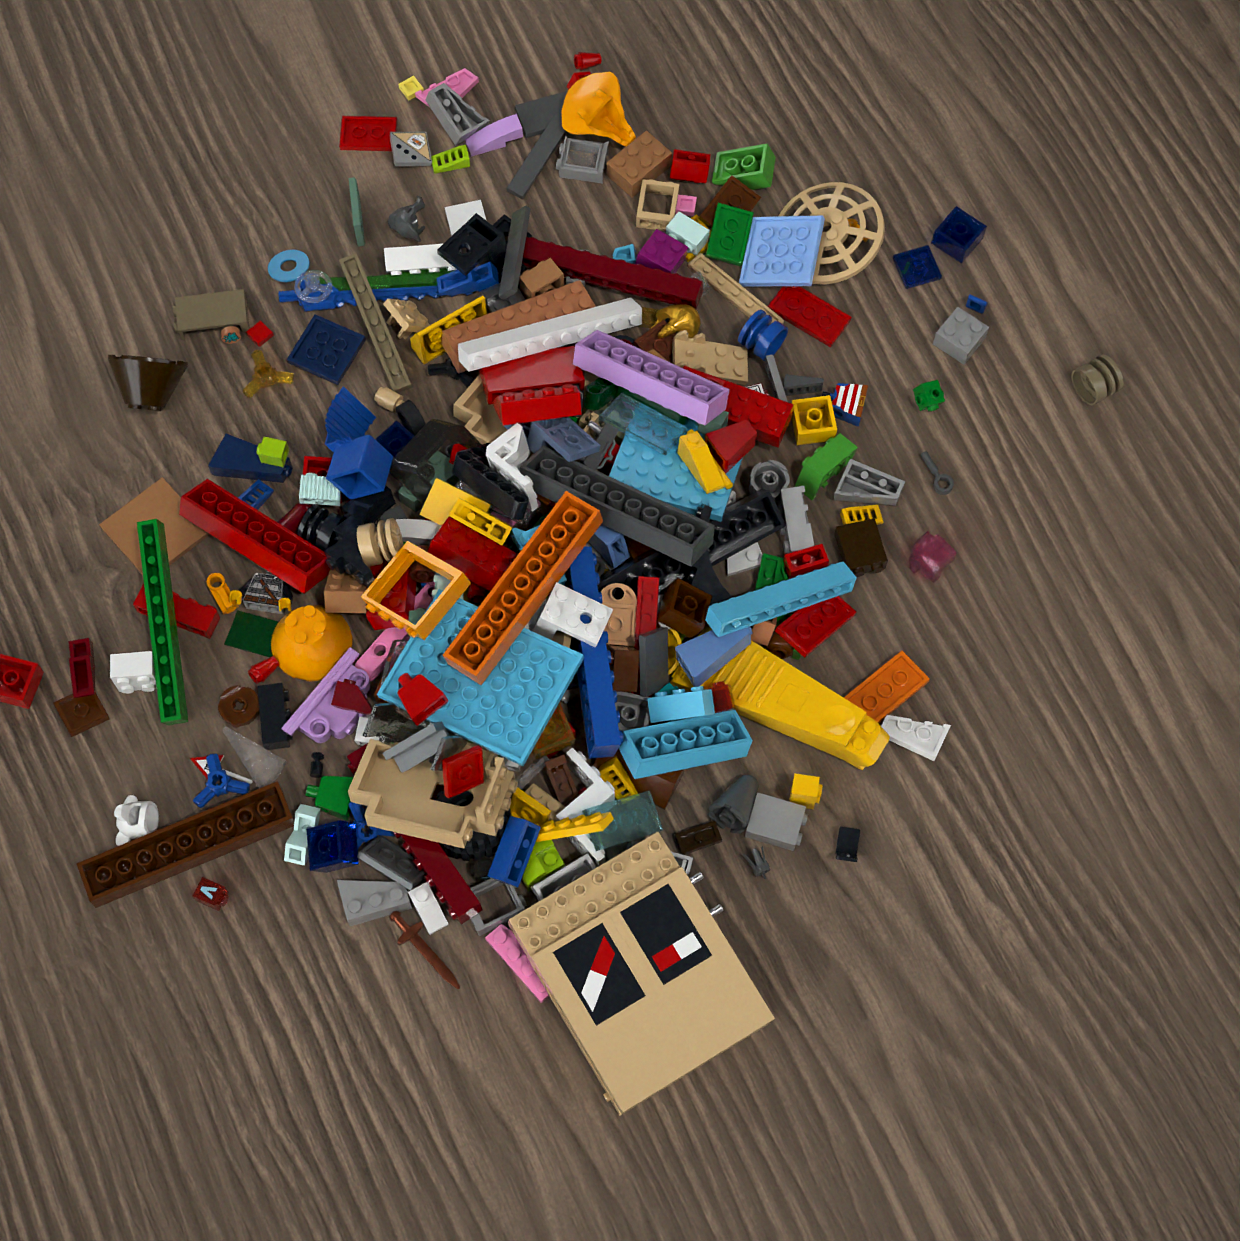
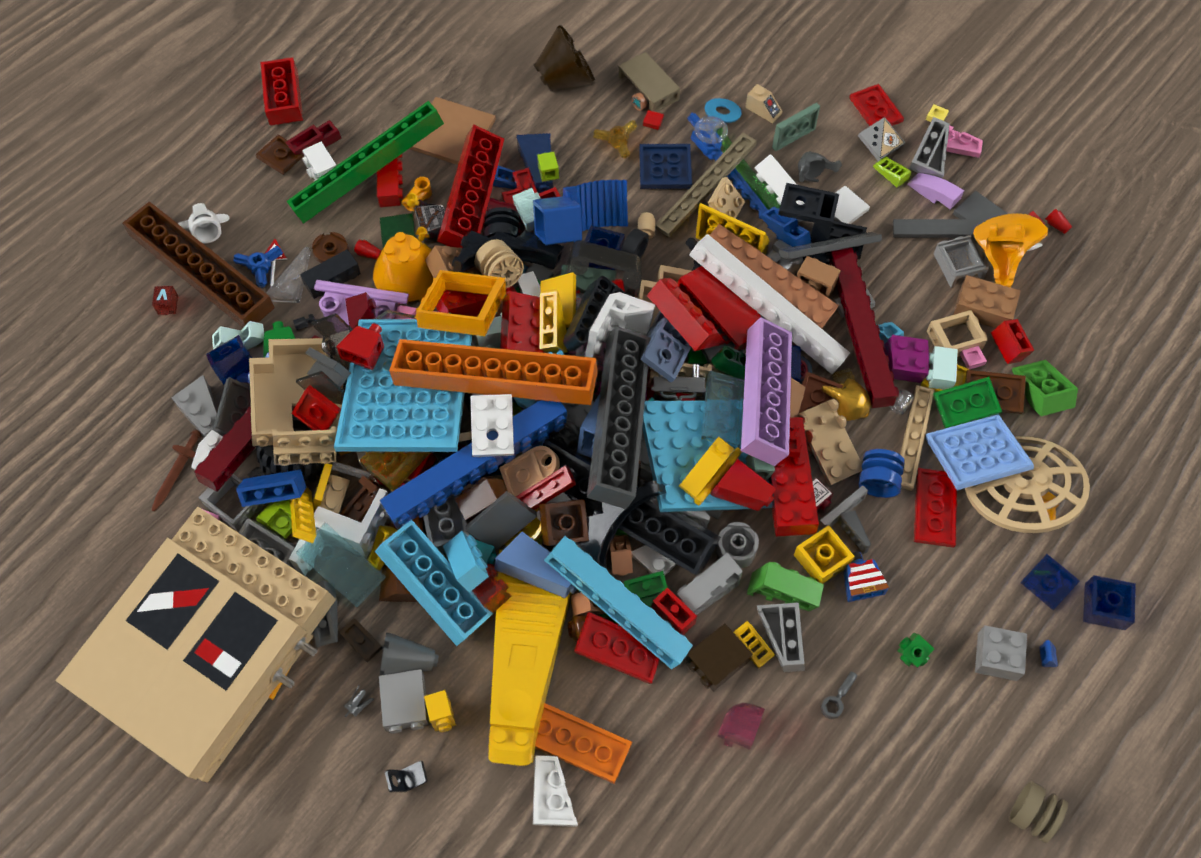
camera: 65 degrees right, 5 degrees down
(279, 489) = (523, 182): none -> red tile
(305, 226) = (763, 103): none -> tan slope
(733, 580) = (621, 555): none -> nougat slope

